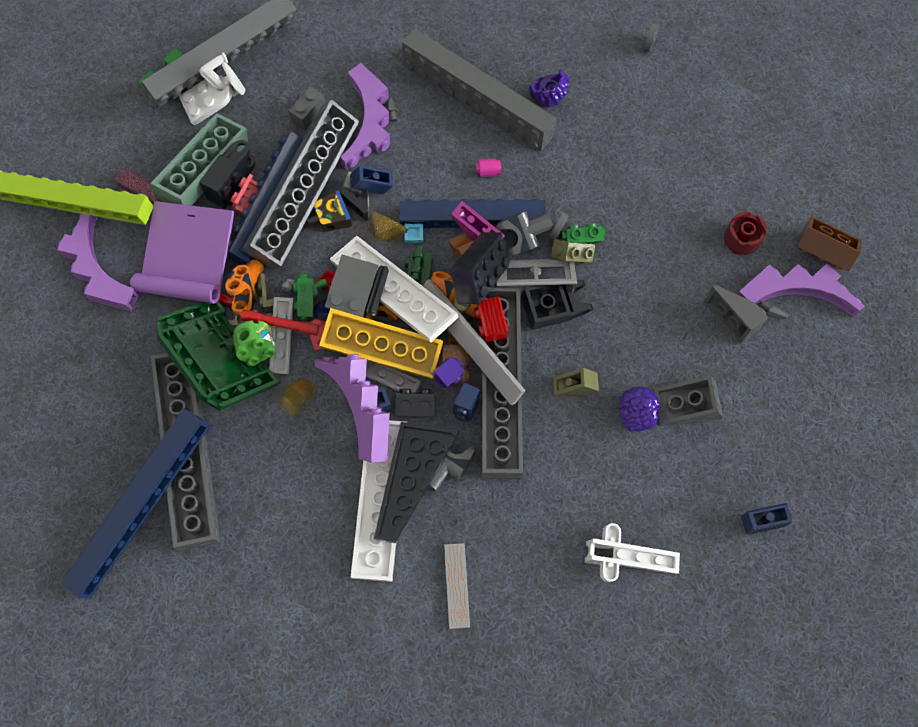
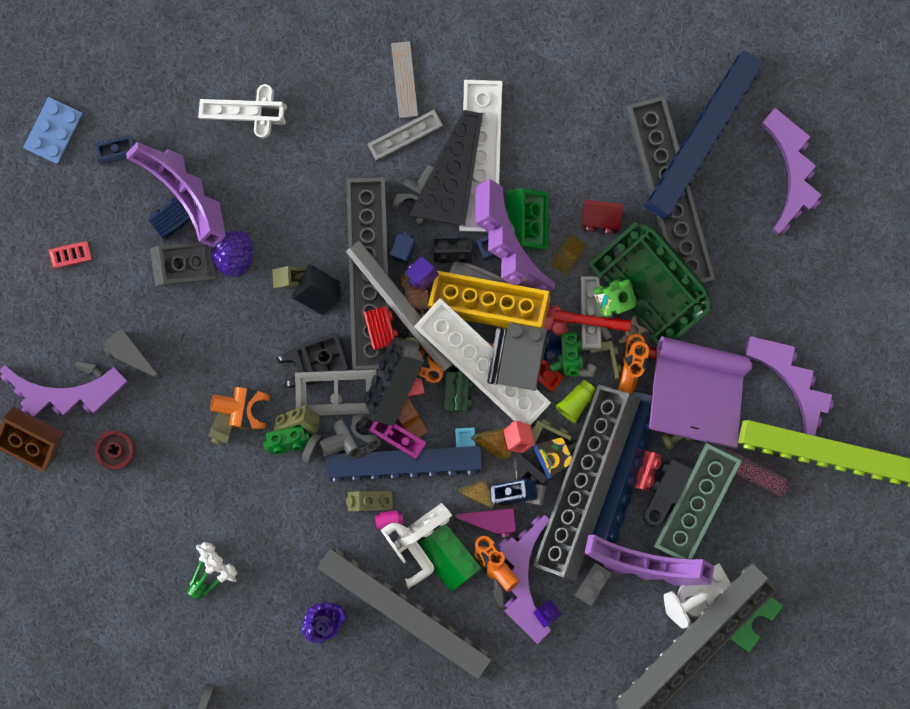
camera: 175 degrees right, 15 degrees up
(51, 442) = (800, 193): none -> medium lavender arch
(254, 115) = (648, 566): none -> medium lavender arch
(259, 428) = (601, 216): none -> dark red slope
(304, 258) = (576, 401): none -> lime plant
(335, 431) = (529, 217): none -> green slope
(346, 234) = (548, 426): none -> olive bracket
(350, 85) = (547, 613): none -> dark purple bracket
(362, 224) = (519, 436): none -> coral brick
(388, 115) = (494, 564): none -> orange connector
(397, 162) = (495, 521): none -> magenta slope
(406, 186) = (478, 492): none -> clear yellow slope
(433, 137) = (449, 557): none -> green slope
(458, 525) = (405, 135): none -> light grey tile
(463, 151) = (408, 539): none -> white plate
(506, 181) = (369, 501): none -> olive bracket
(552, 369) = (317, 290): none -> black slope
(627, 265) = (240, 407): none -> orange connector
(644, 252) = (220, 429): none -> olive bracket
(651, 126) = (212, 563): none -> white plant
(688, 473) = (171, 170): none -> medium lavender arch
(703, 446) = (170, 218): none -> dark blue brick
(819, 411) = (71, 261): none -> coral slope
(833, 546) = (53, 130): none -> medium blue plate

